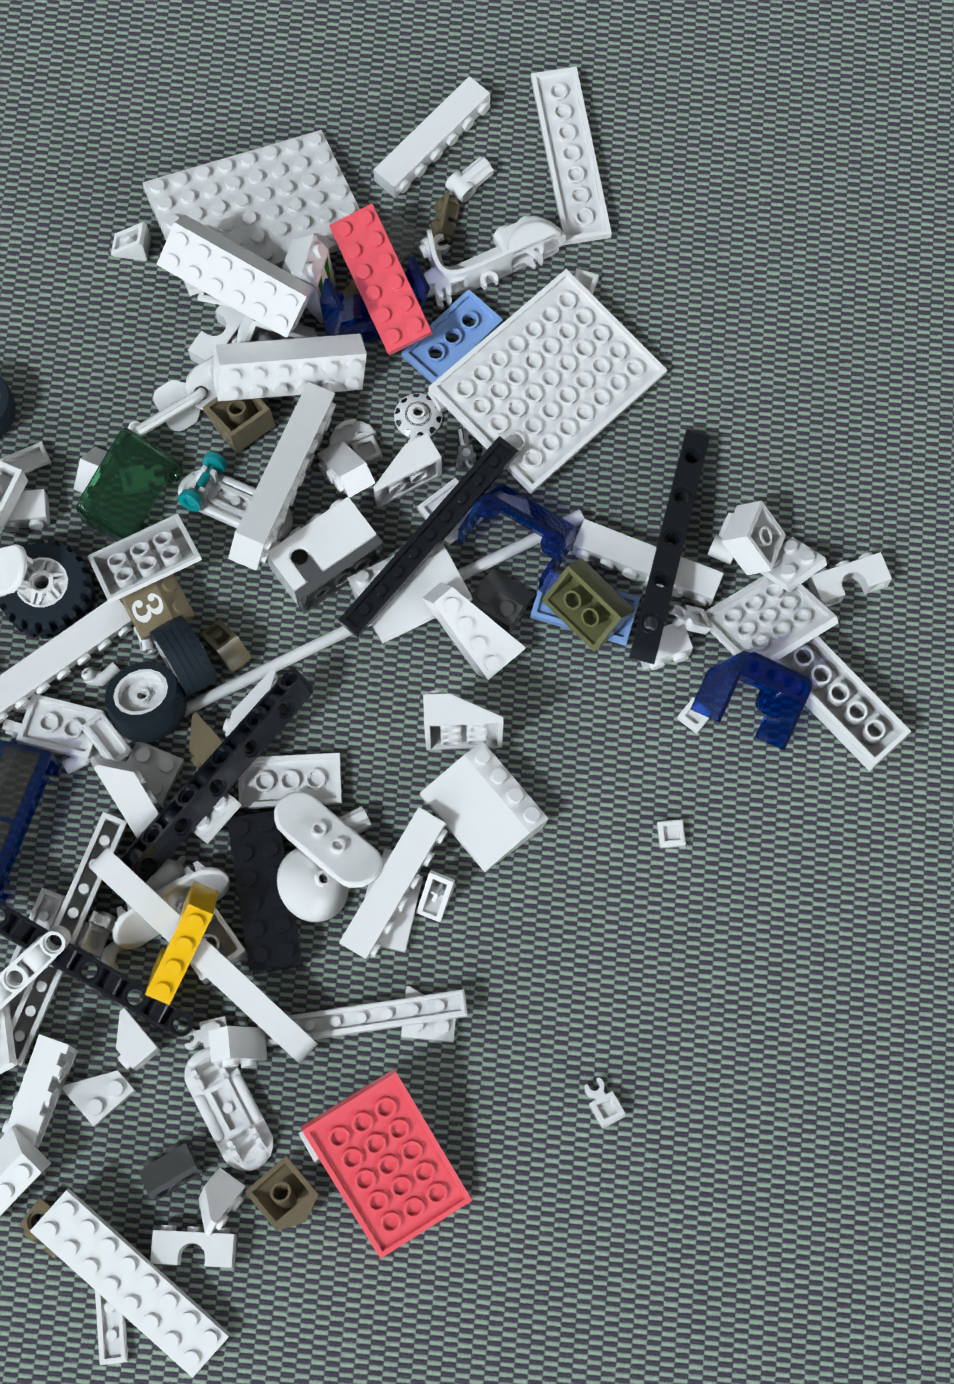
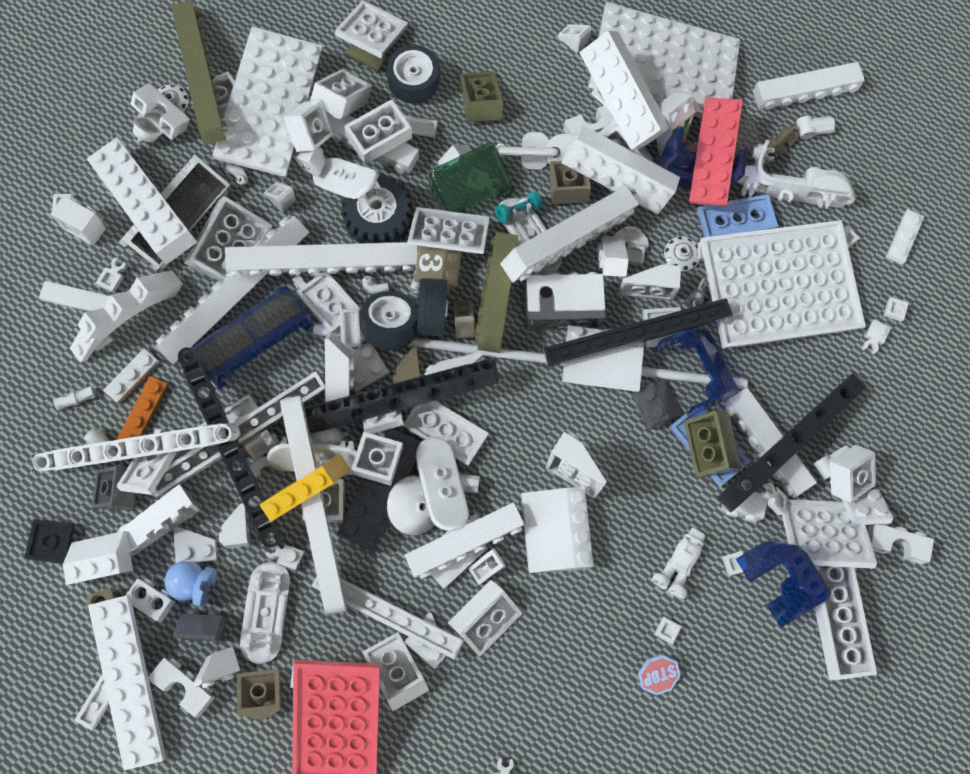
camera: 30 degrees right, 0 degrees up
(72, 381) = (481, 96): none -> olive slope
(92, 1189) = (147, 604): none -> white brick
(122, 1132) = (188, 581): none -> light blue tile
(237, 1046) = (296, 576): white brick -> none
(239, 859) = (377, 458): none -> white brick
(244, 595) = (495, 295): none -> olive brick
(422, 1070) = (398, 672): none -> white slope
(470, 951) = (485, 617): none -> white slope
(475, 634) = (626, 417): white wedge -> none
(570, 155) = (891, 152): white plate -> none
(638, 752) = (682, 561): none -> white piece
(646, 241) = (905, 236): none -> white plate
(684, 370) = (876, 334): none -> white plate
(687, 329) = (895, 309): none -> white plate
(692, 884) = (659, 674): none -> piece

